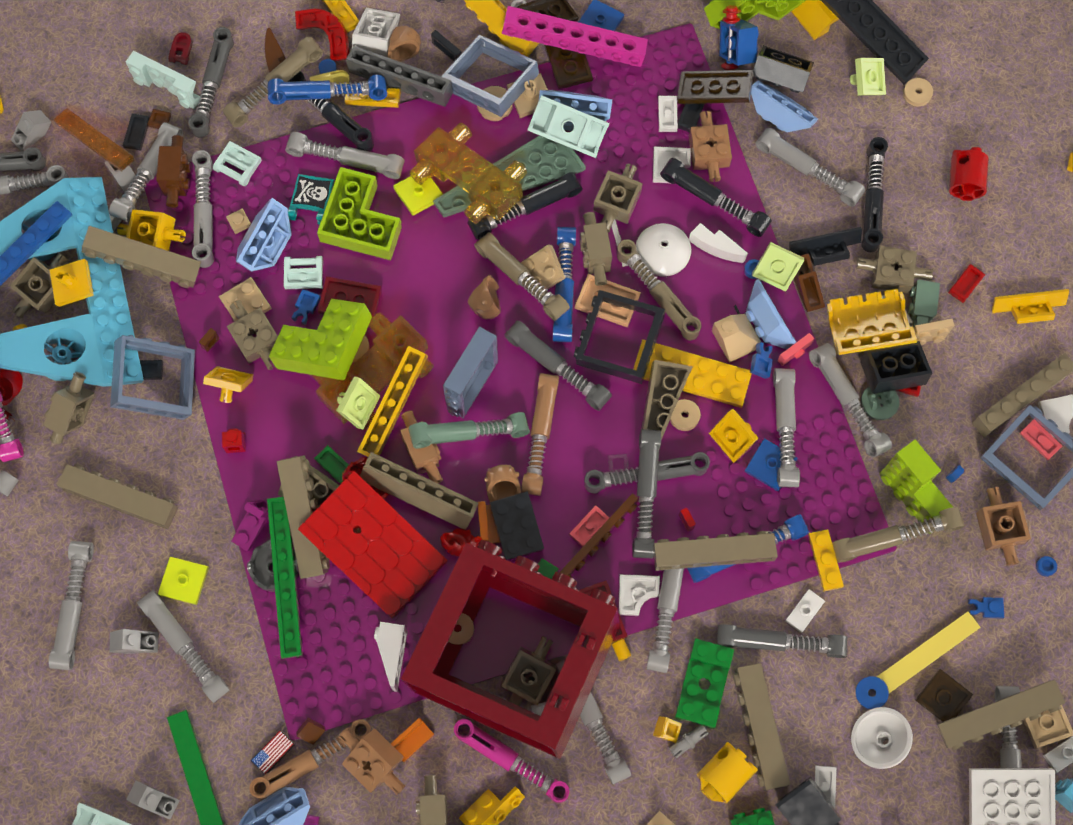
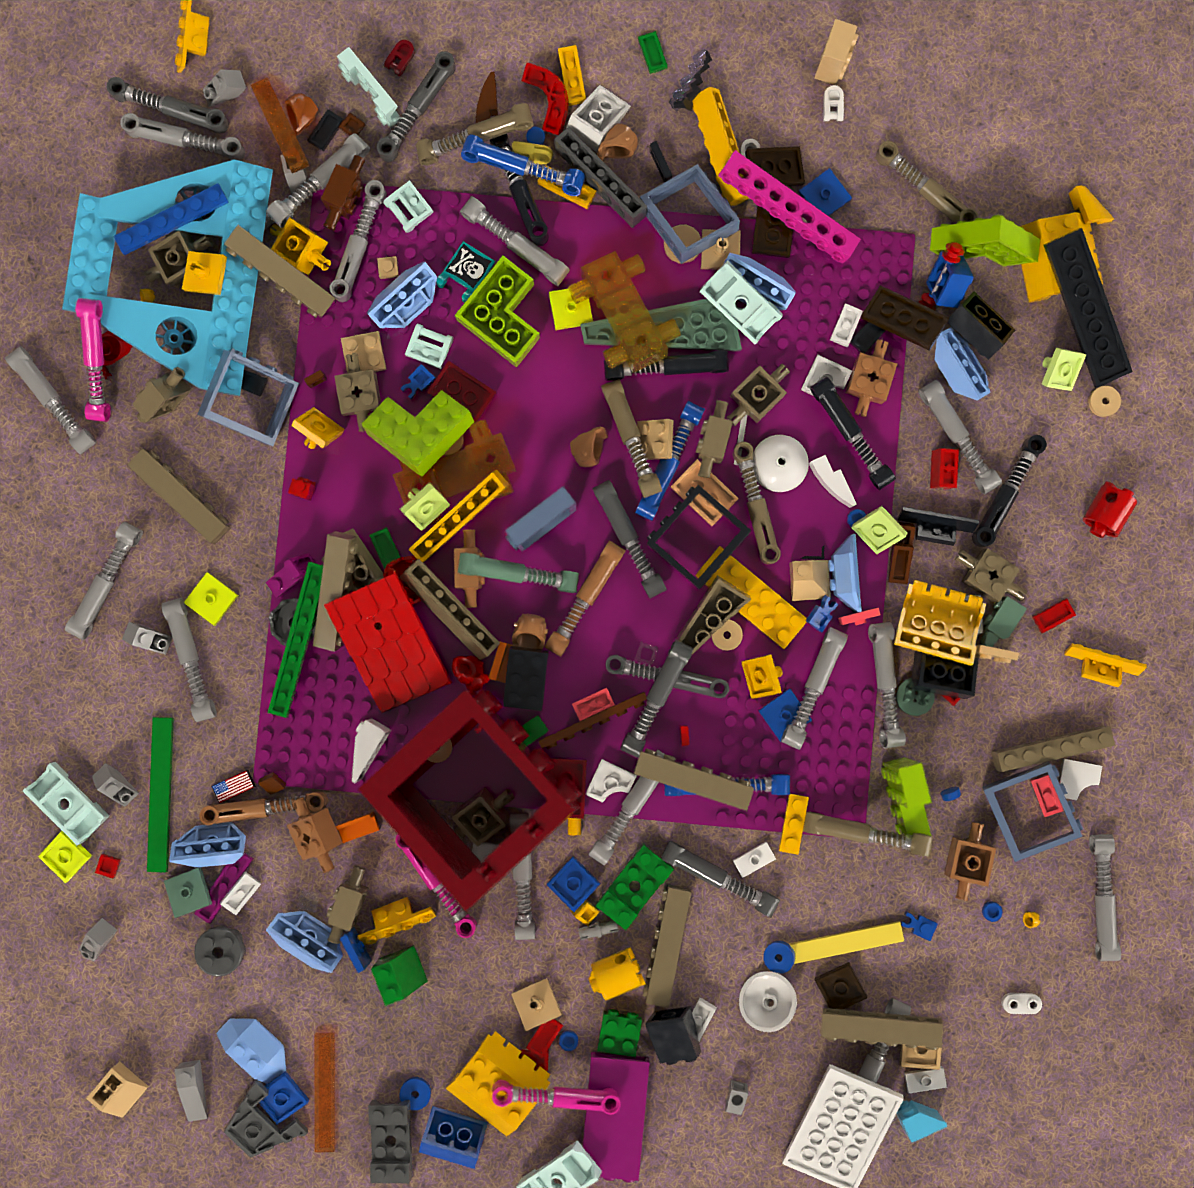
camera: 25 degrees right, 15 degrees up
(108, 121) = (300, 111): none -> dark orange helmet
(645, 706) = (573, 884): none -> blue plate
(809, 197) = (944, 468): none -> red hinge

